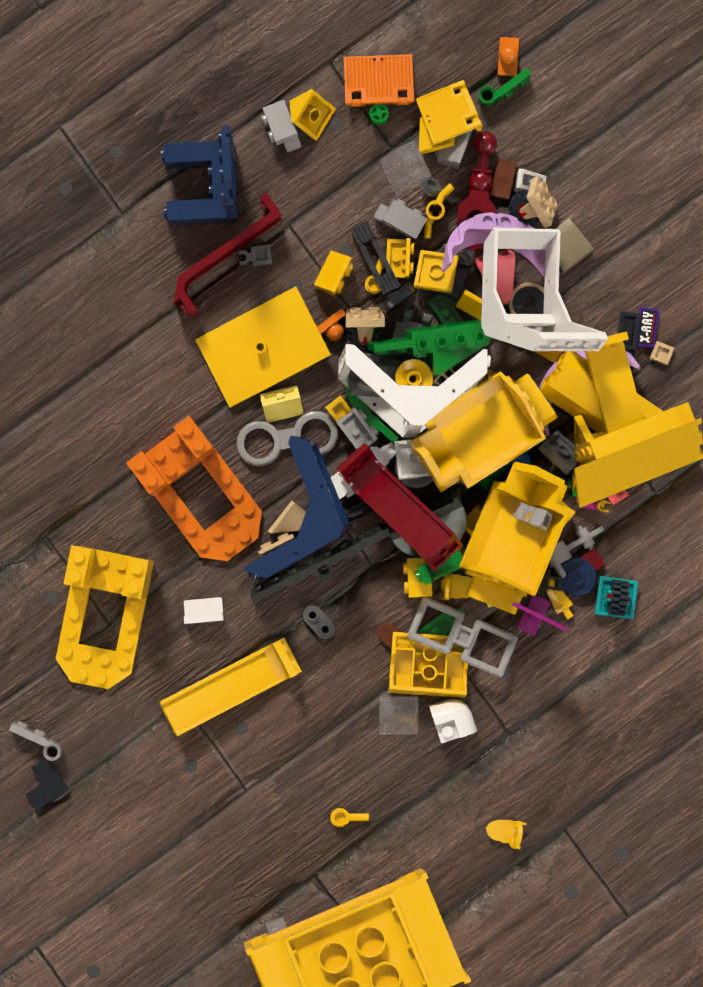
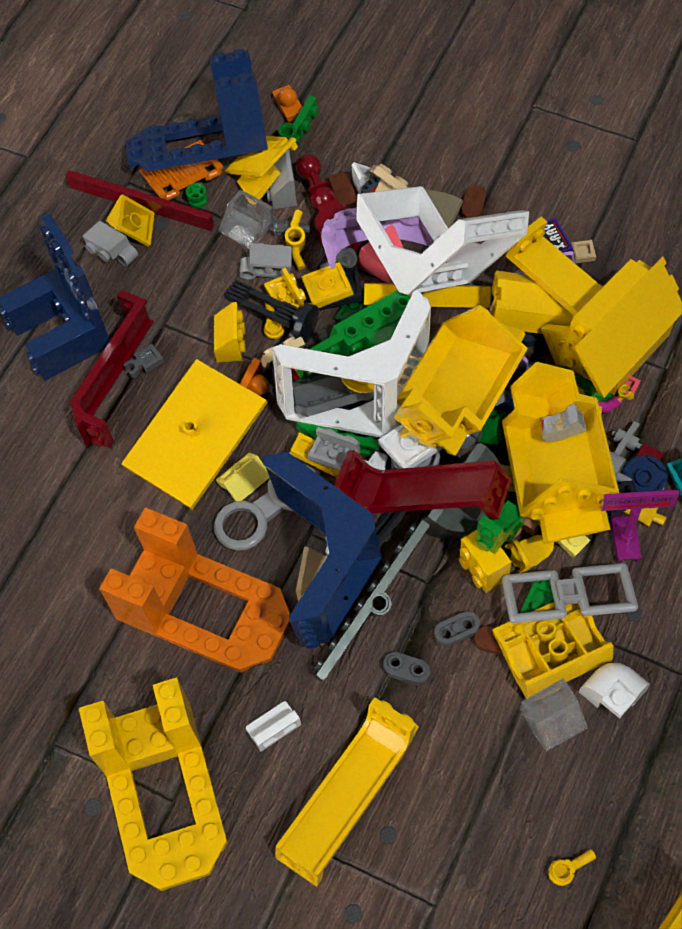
camera: 20 degrees left, 25 degrees down
(328, 92) = (158, 205): none -> dark red tile
(370, 614) = (455, 628): none -> dark grey plate
(451, 62) = (238, 119): none -> dark blue bracket
(602, 254) = (473, 201): none -> copper tile

